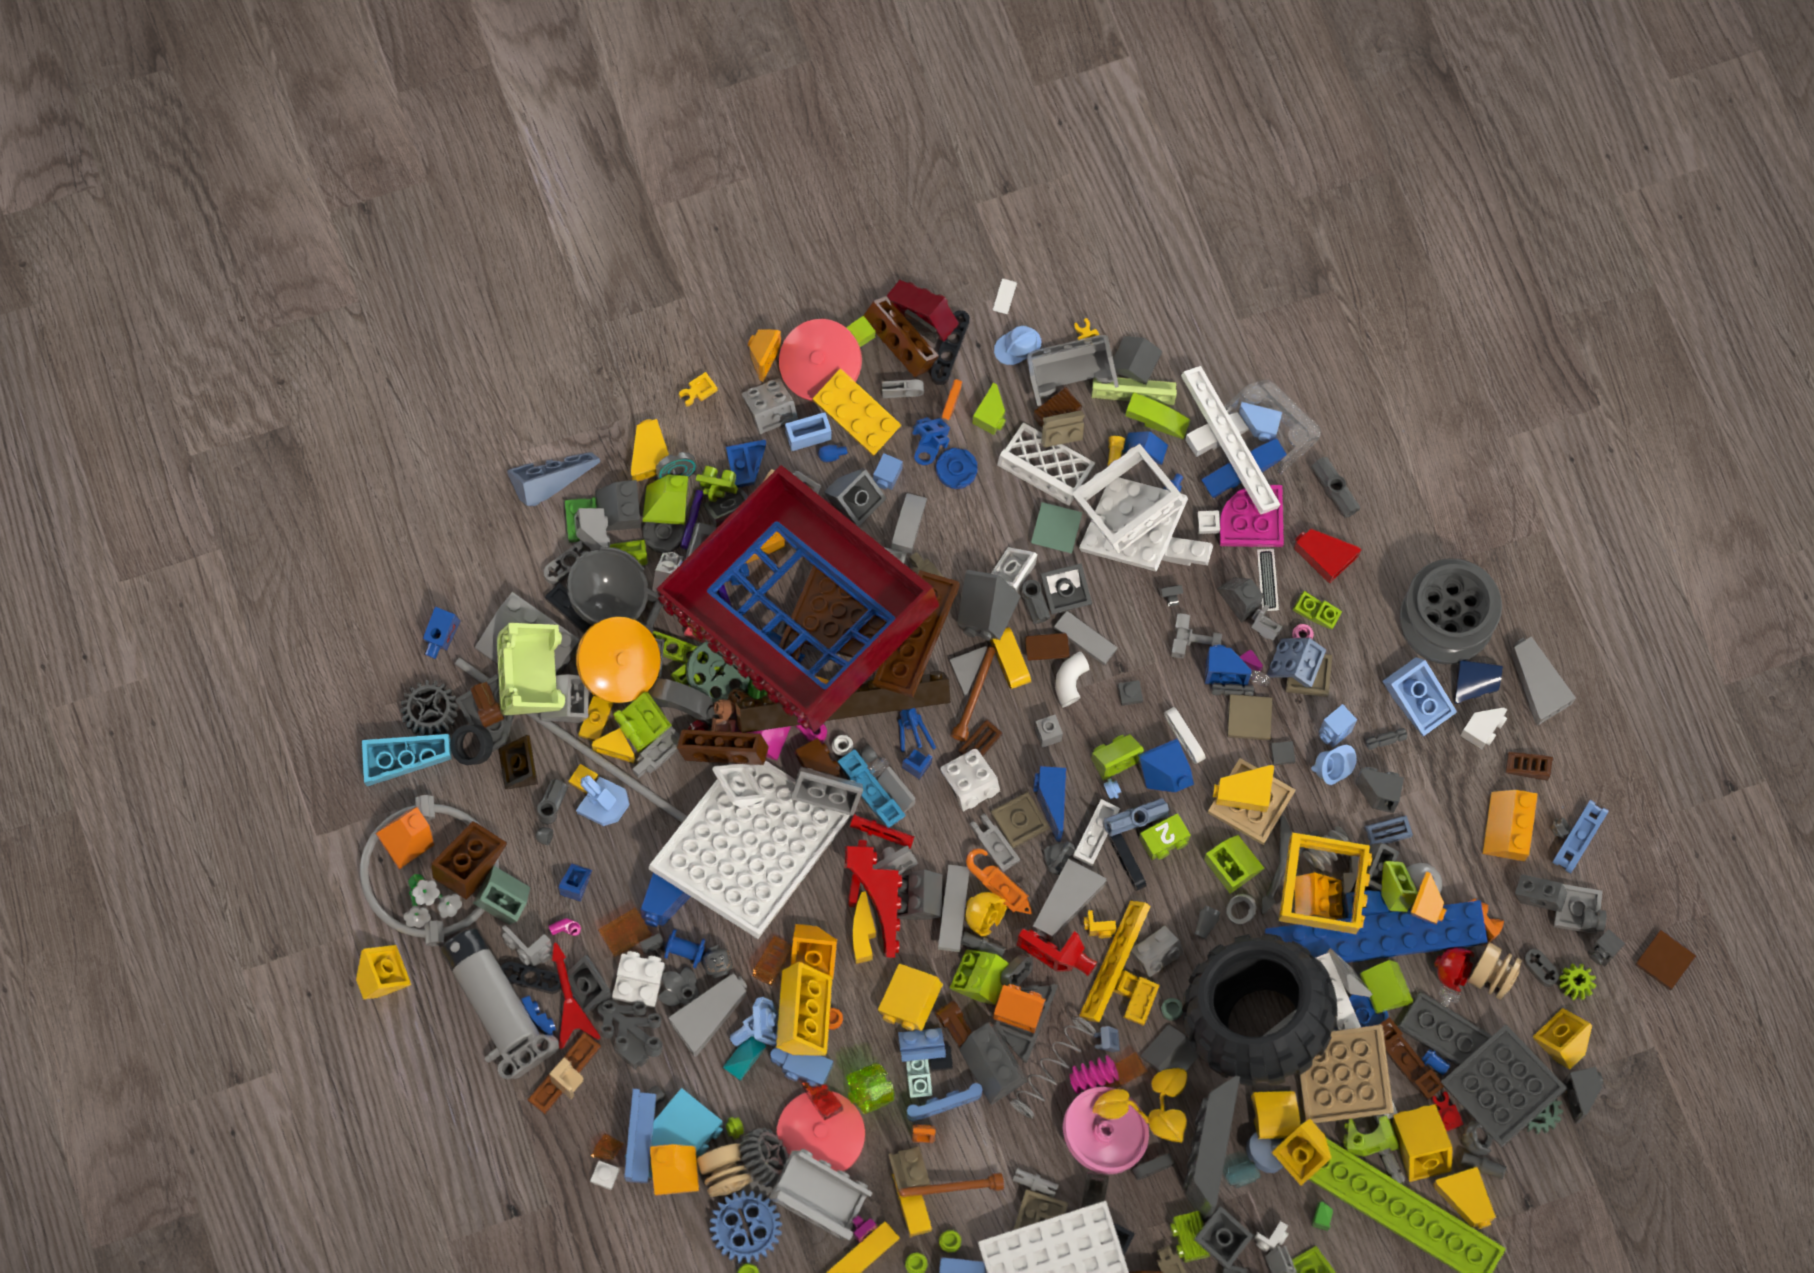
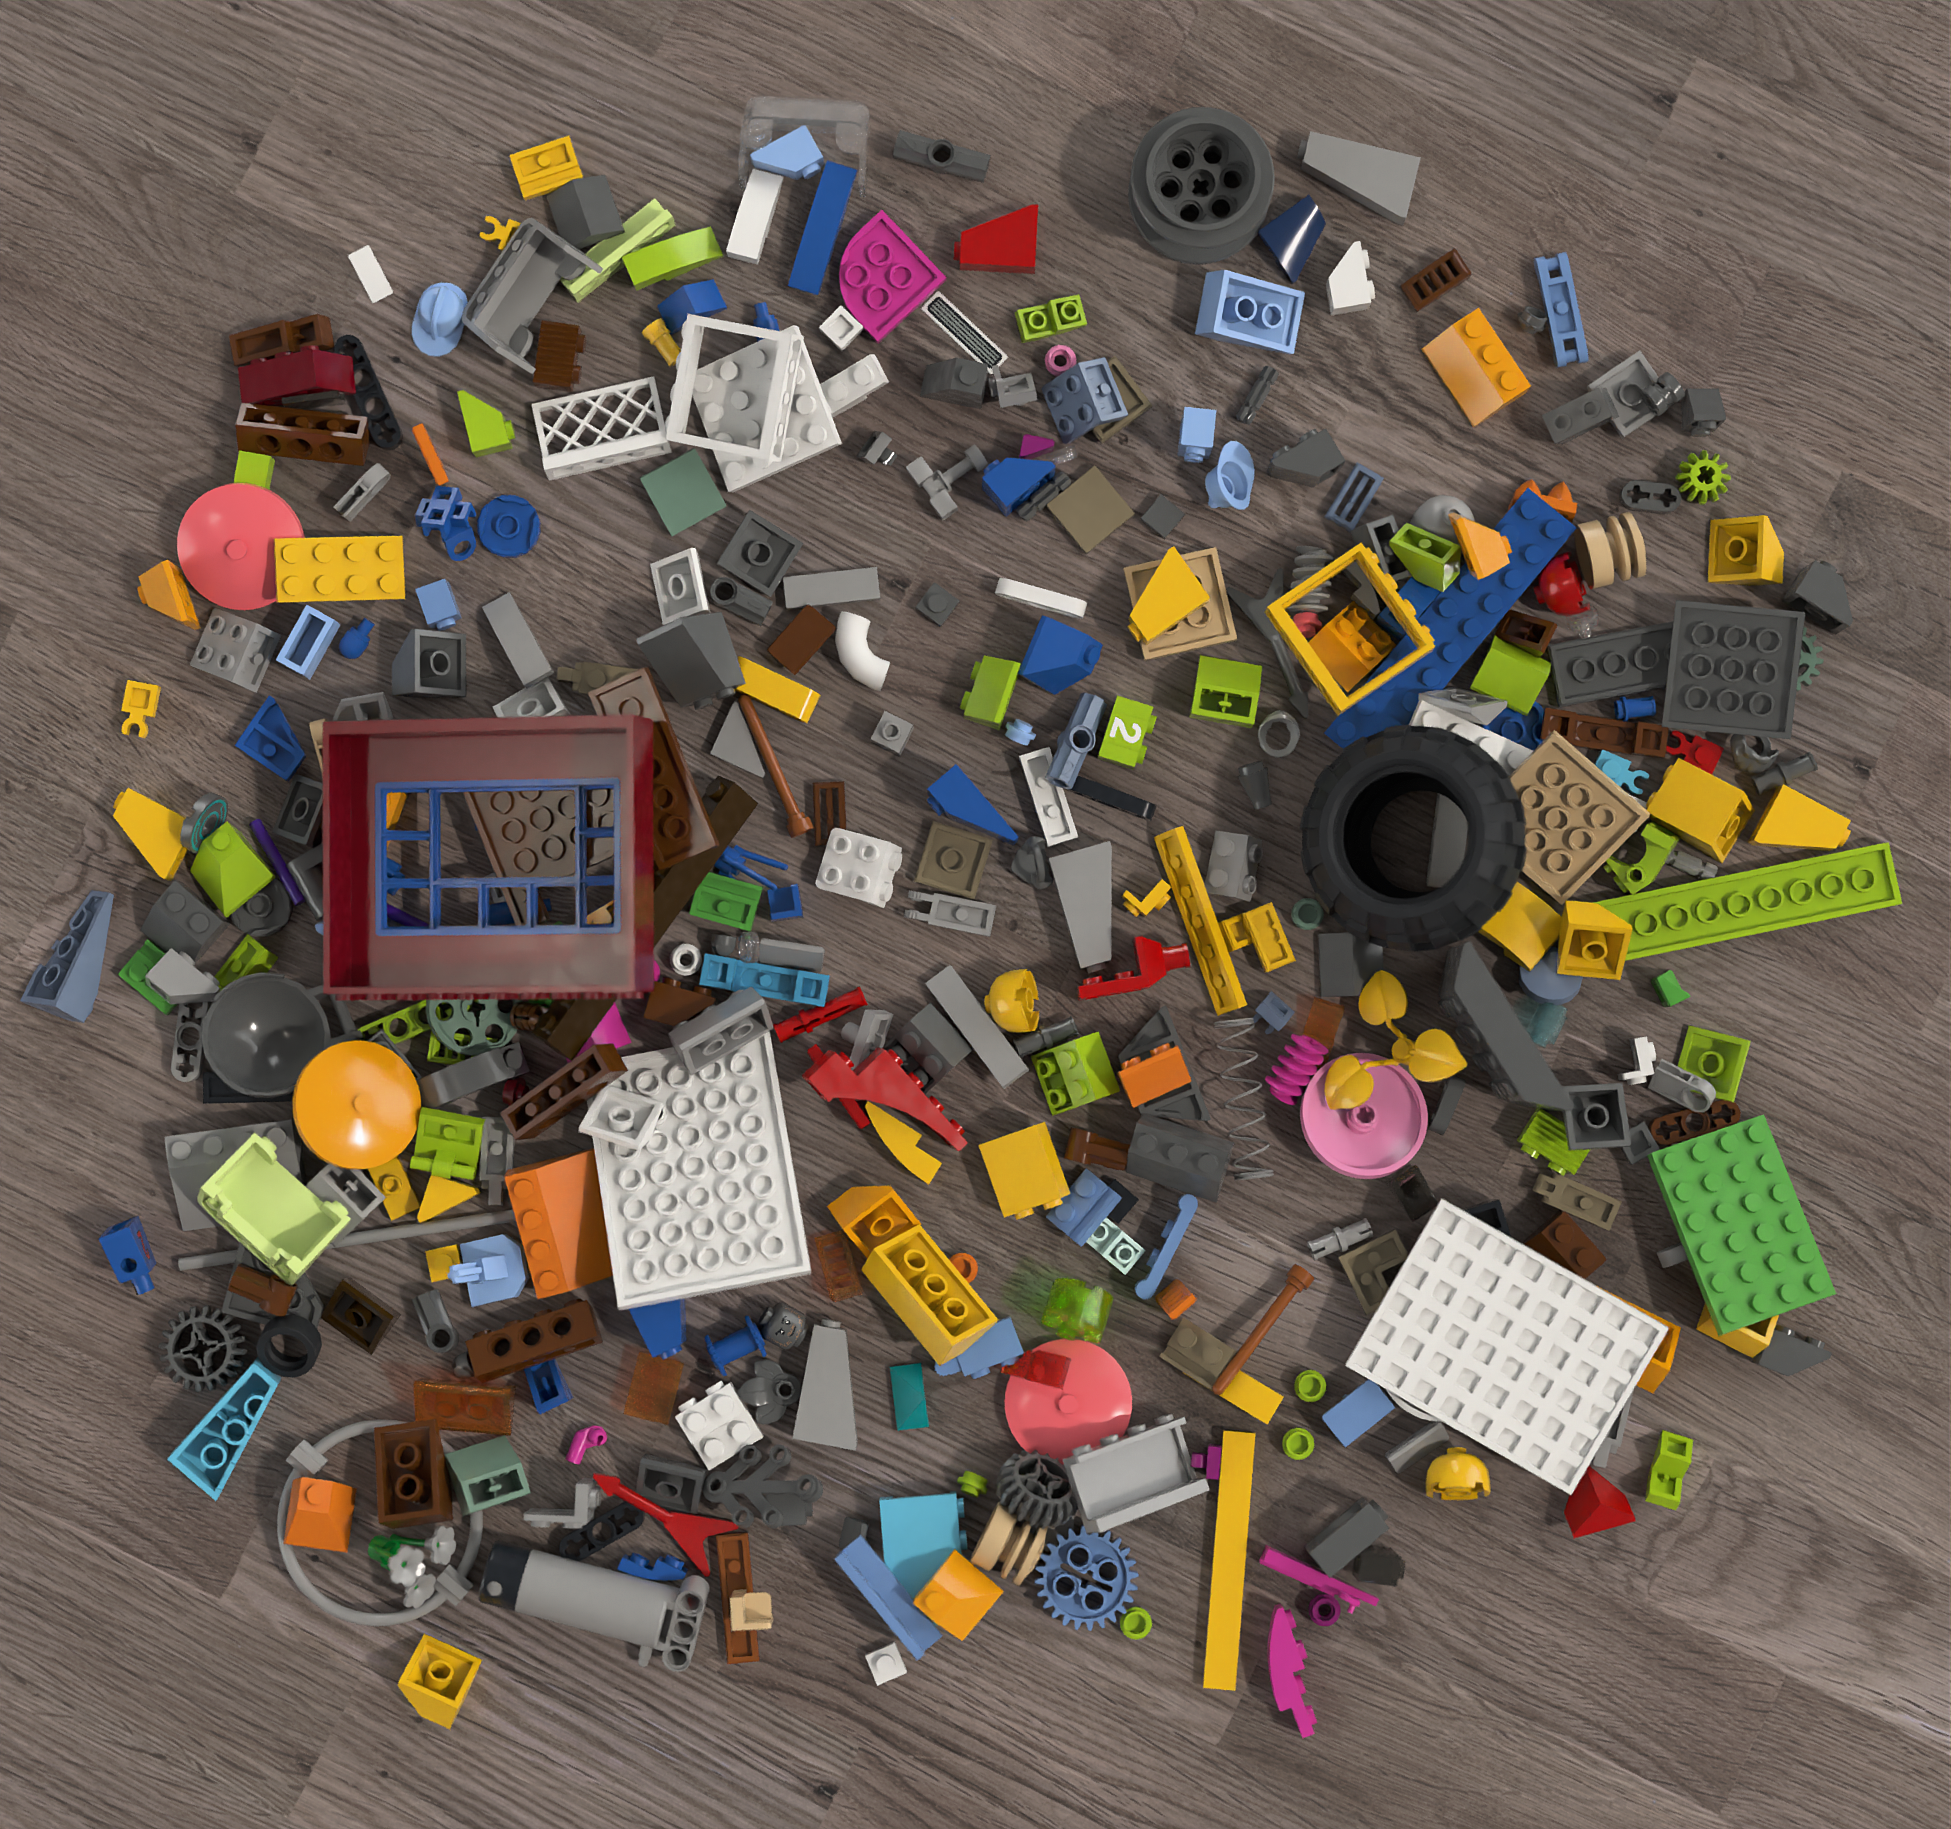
camera: 40 degrees left, 15 degrees up
(527, 854) = (465, 1405): none -> clear orange slope
(593, 863) = (582, 1334): none -> reddish brown brick
(607, 1147) = (860, 1632): clear orange slope -> none
(651, 943) = (695, 1373): dark grey tile -> none
(658, 808) = (561, 1222): none -> orange slope
(667, 565) = (306, 947): white slope -> none
(715, 485) = (276, 787): lime hips -> none
(724, 709) = (539, 1061): nougat plate -> none
(761, 1024) = (897, 1351): light blue piece -> none
(889, 735) = (726, 901): none -> bright green plate
(935, 284) = (281, 337): none -> reddish brown slope
(999, 884) = (1000, 953): orange plate -> none
(1017, 970) = (1109, 1033): dark grey beam -> none
(1063, 428) = (584, 372): dark tan plate -> none
(1136, 322) = (545, 167): none -> yellow plate
(1230, 440) = (780, 212): white plate -> none
(1305, 867) = (1307, 623): none -> coral plate
(1398, 1085) = (1617, 770): none -> medium azure plate
(1415, 974) = (1526, 632): none -> reddish brown slope
(1665, 960) = (1771, 363): reddish brown tile -> none

